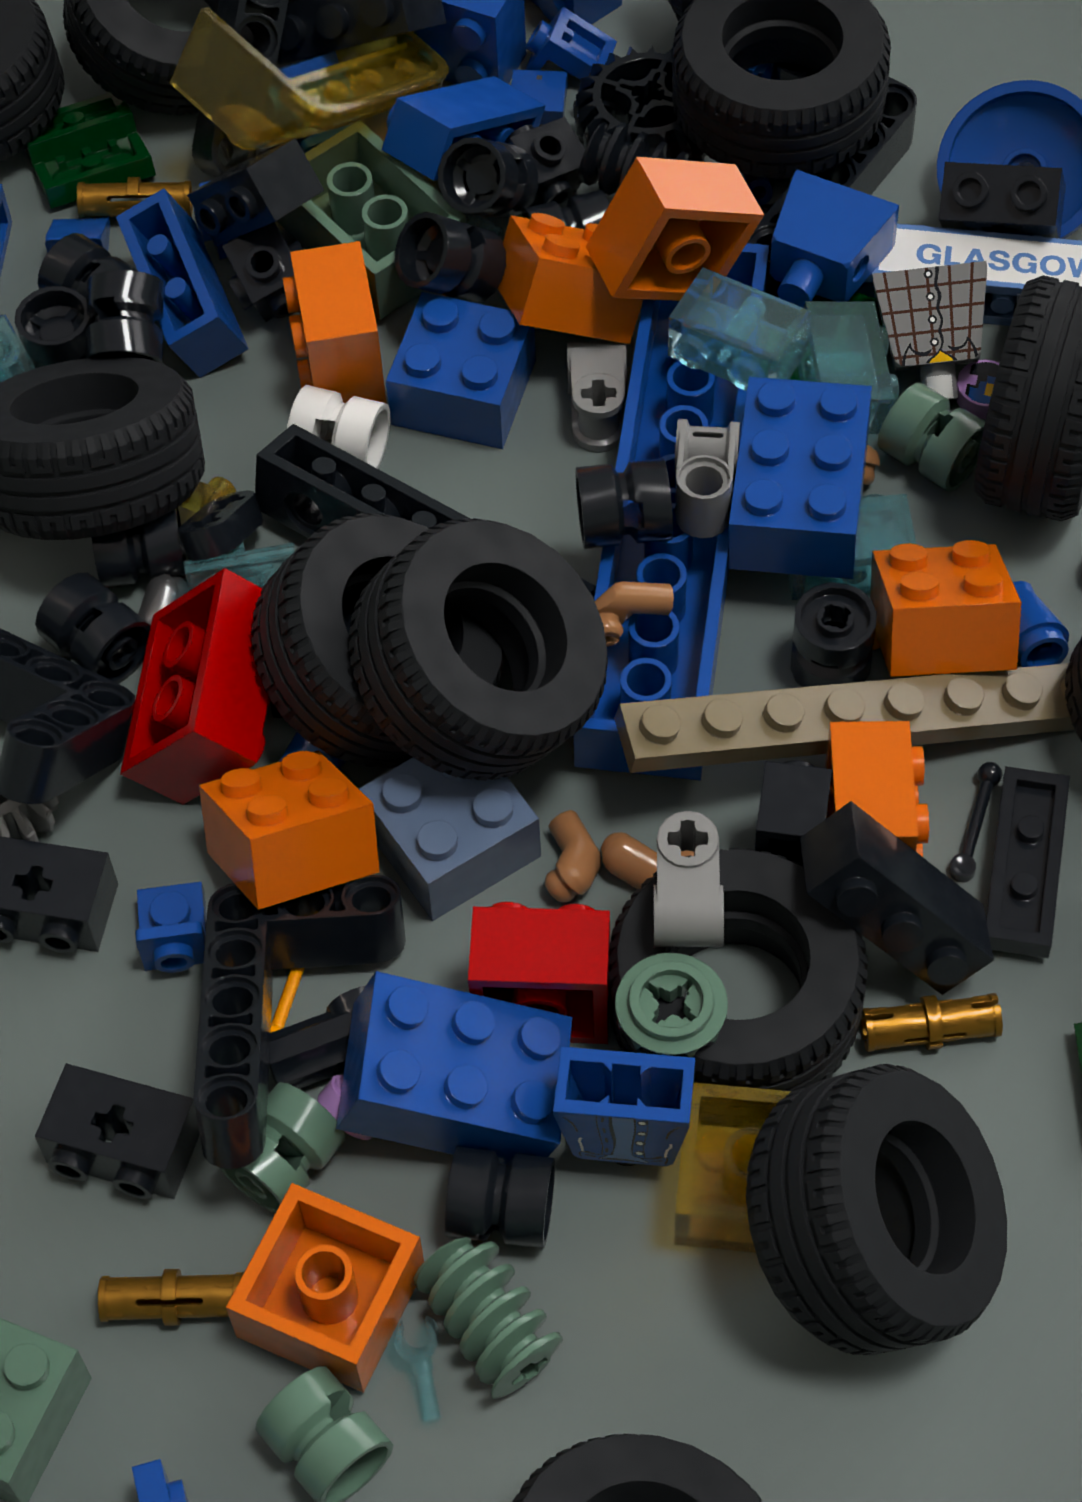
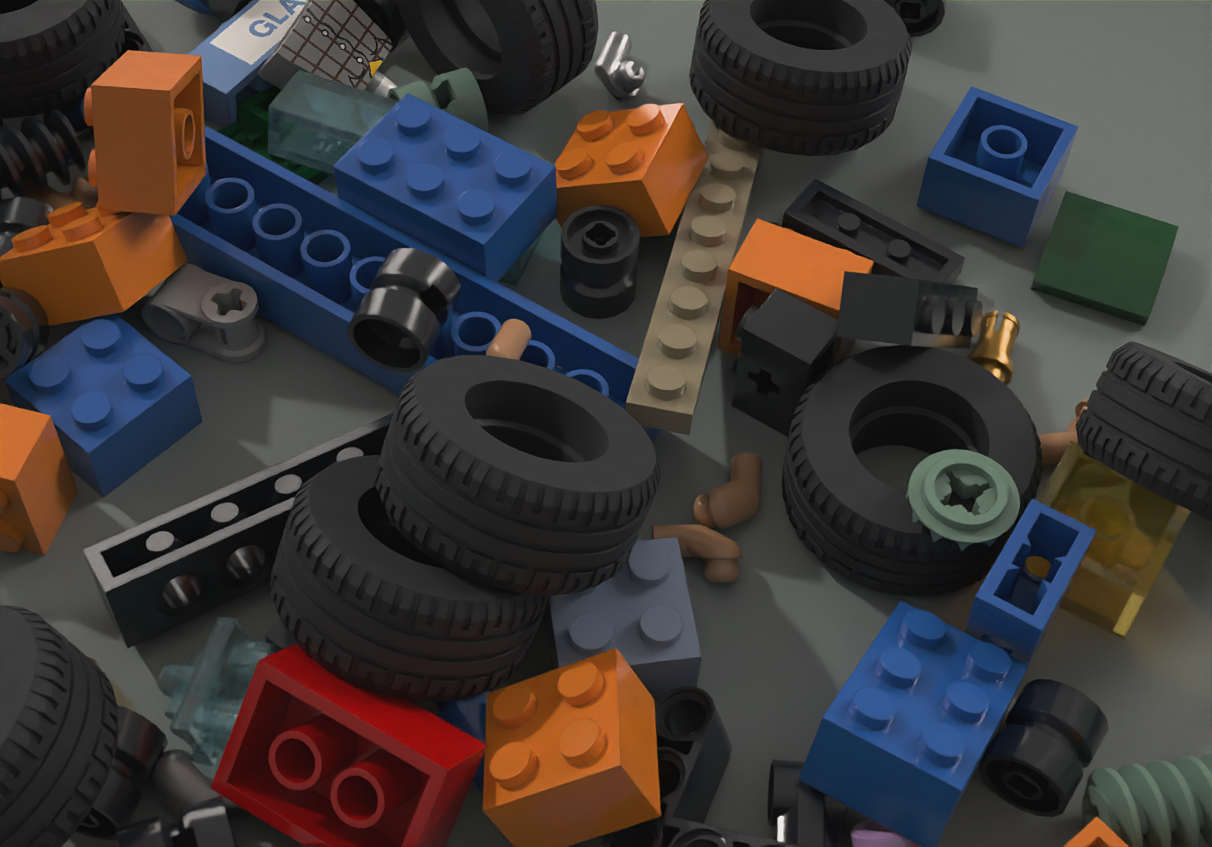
camera: 70 degrees left, 5 degrees down
(221, 525) = (147, 677): black beam -> none
(354, 426) = (108, 507): white wheel -> none
(545, 962) = (835, 603): red brick -> none
(688, 888) = (857, 433): light grey piece -> none
(705, 477) = (400, 227): light grey piece -> none
(737, 330) = (271, 157): clear light blue brick -> none
(829, 239) = (231, 64): blue torso -> none
(976, 386) = (405, 66): tile -> none

